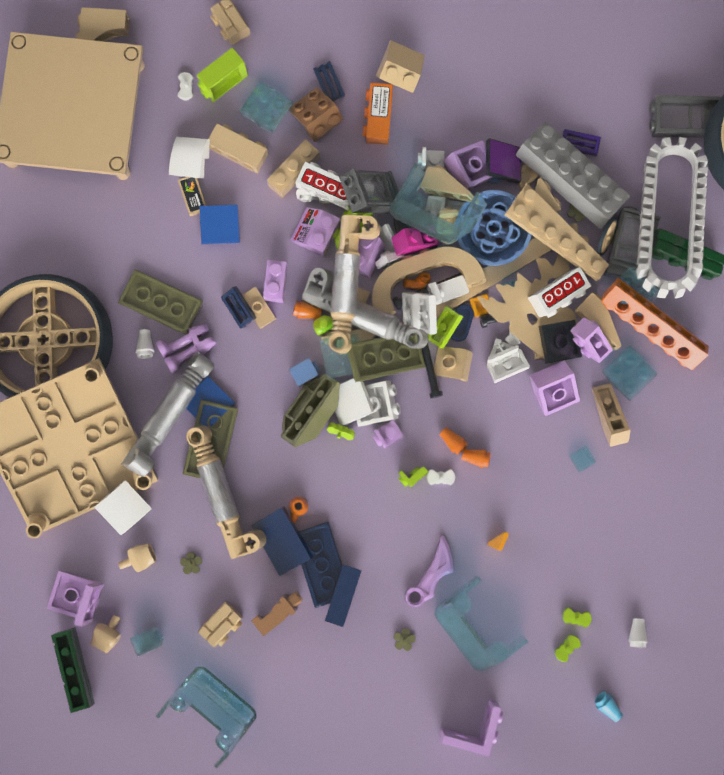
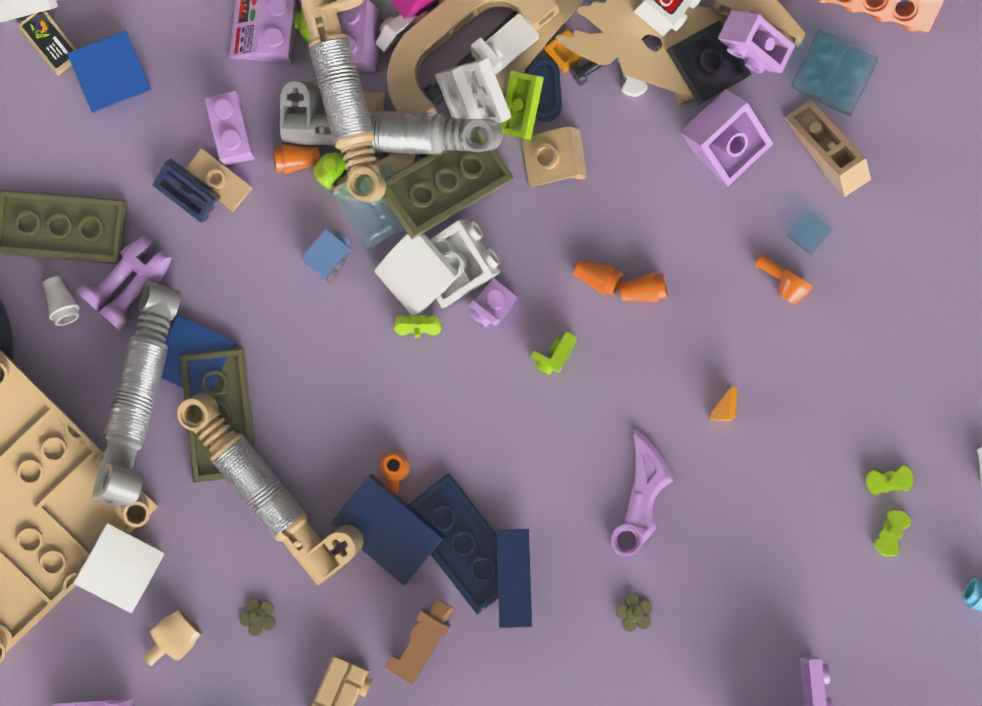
camera: 15 degrees left, 0 degrees up
(310, 411) = (359, 309): olive wedge -> none
(418, 283) = (454, 51): orange arm -> none
(431, 373) = (544, 212): black bar -> none
(441, 477) = (610, 337): white piece -> none
(451, 618) = (726, 572): clear light blue windscreen -> none
(505, 361) = (635, 123): white slope -> none
(560, 486) = (791, 286): none -> orange bar

